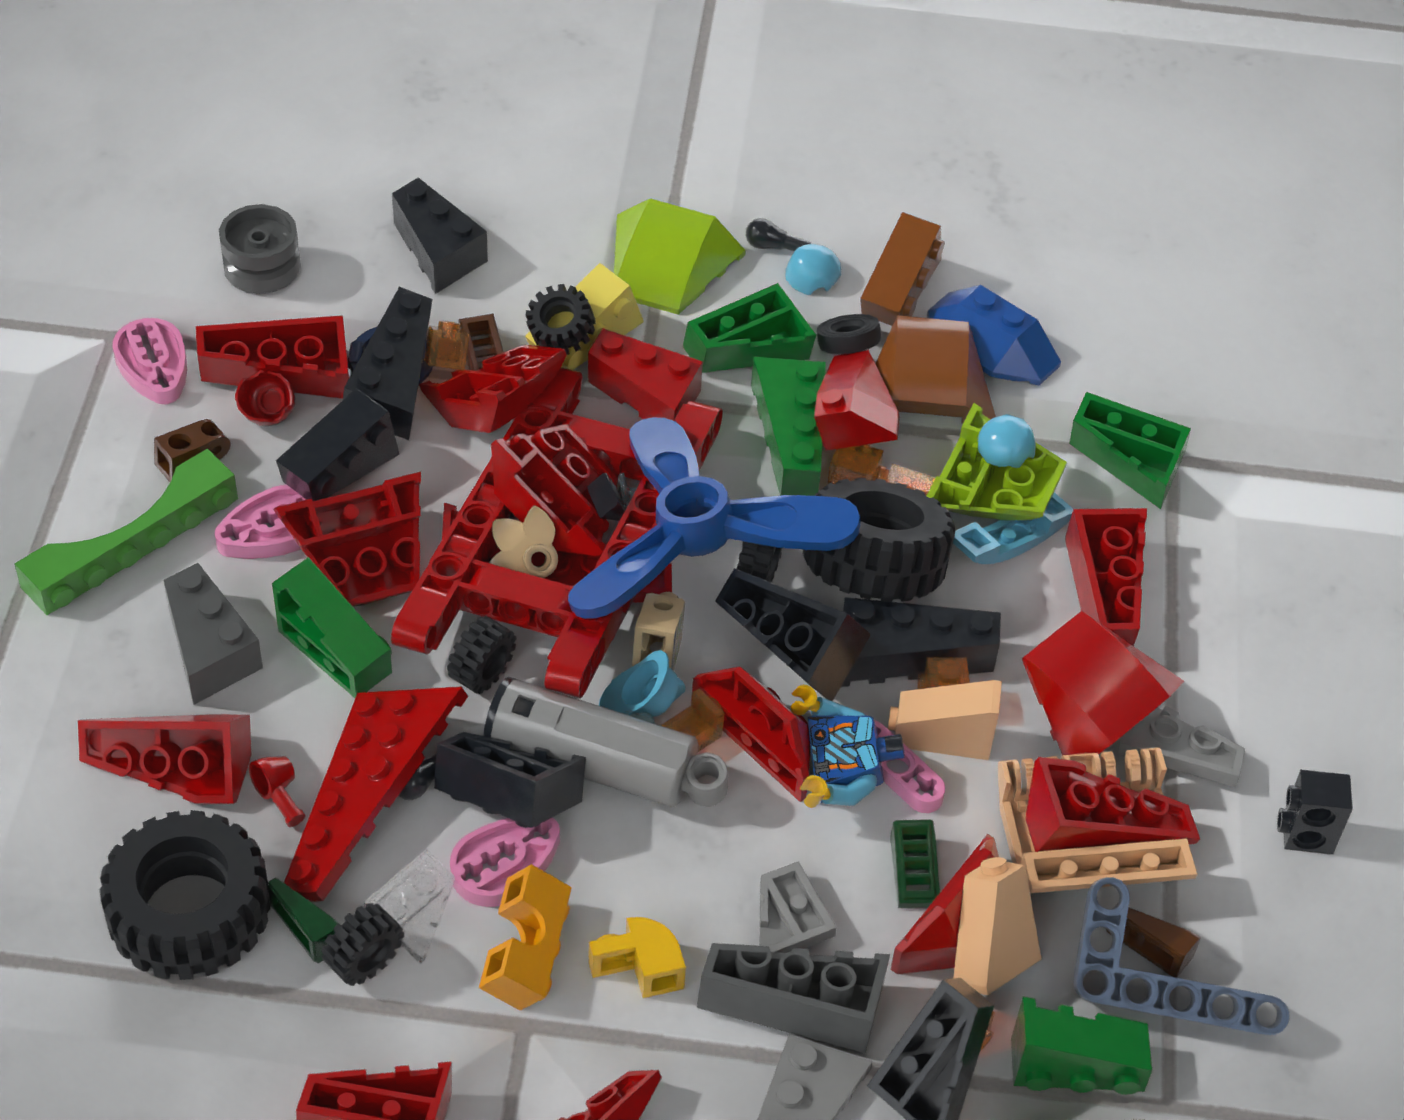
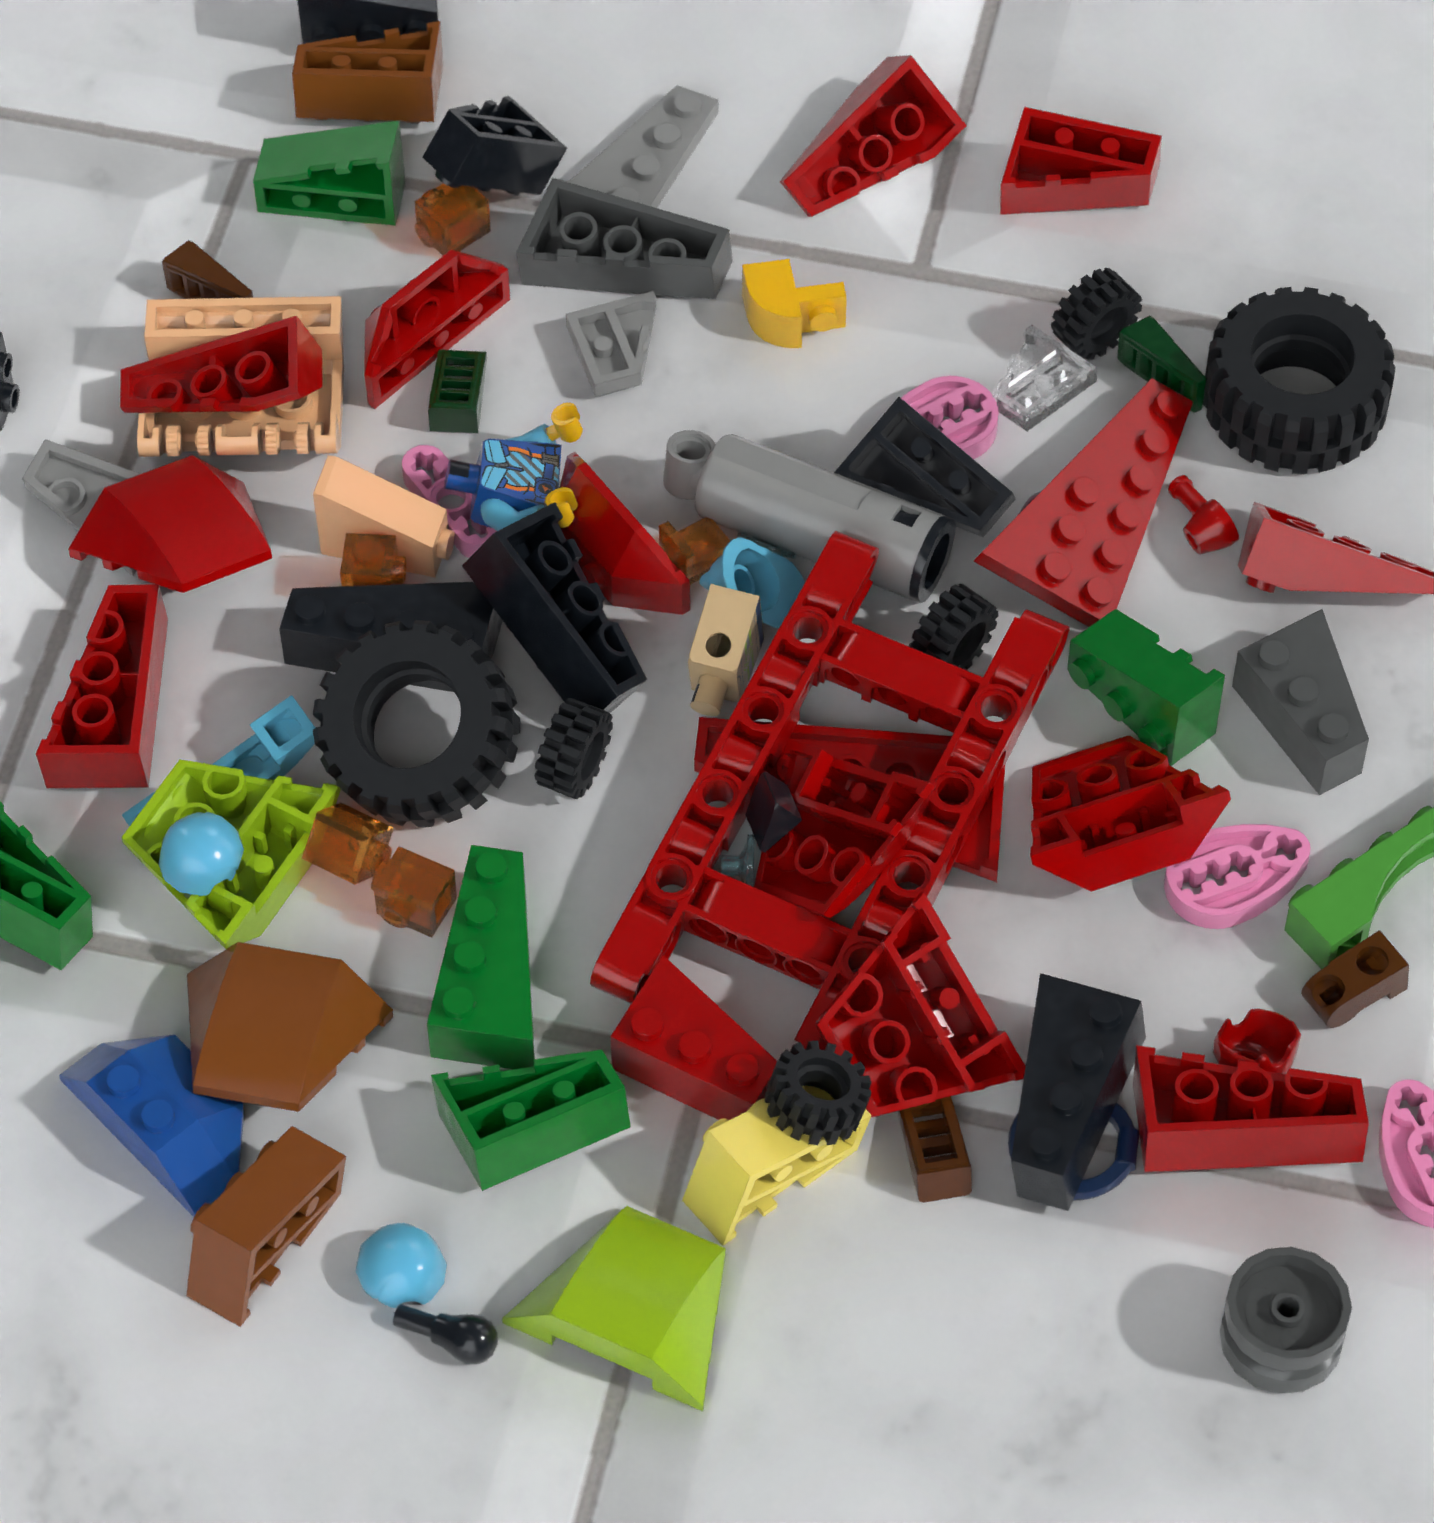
camera: 170 degrees left, 5 degrees up
(339, 448) = (1146, 923): black wedge -> none
(438, 234) = (1002, 1349): black wedge -> none
(446, 345) = (989, 1105): clear orange brick -> none
(521, 540) = (879, 749): tan plate -> none
(522, 969) = (902, 344): light orange arch -> none
(700, 517) = (683, 822): blue piece -> none
(848, 334) = (408, 1115): black tyre -> none
(855, 404) = (397, 942): red wedge -> none
(995, 926) = (396, 260): light nougat slope -> none
(1158, 985) = (270, 239): sand blue beam -> none

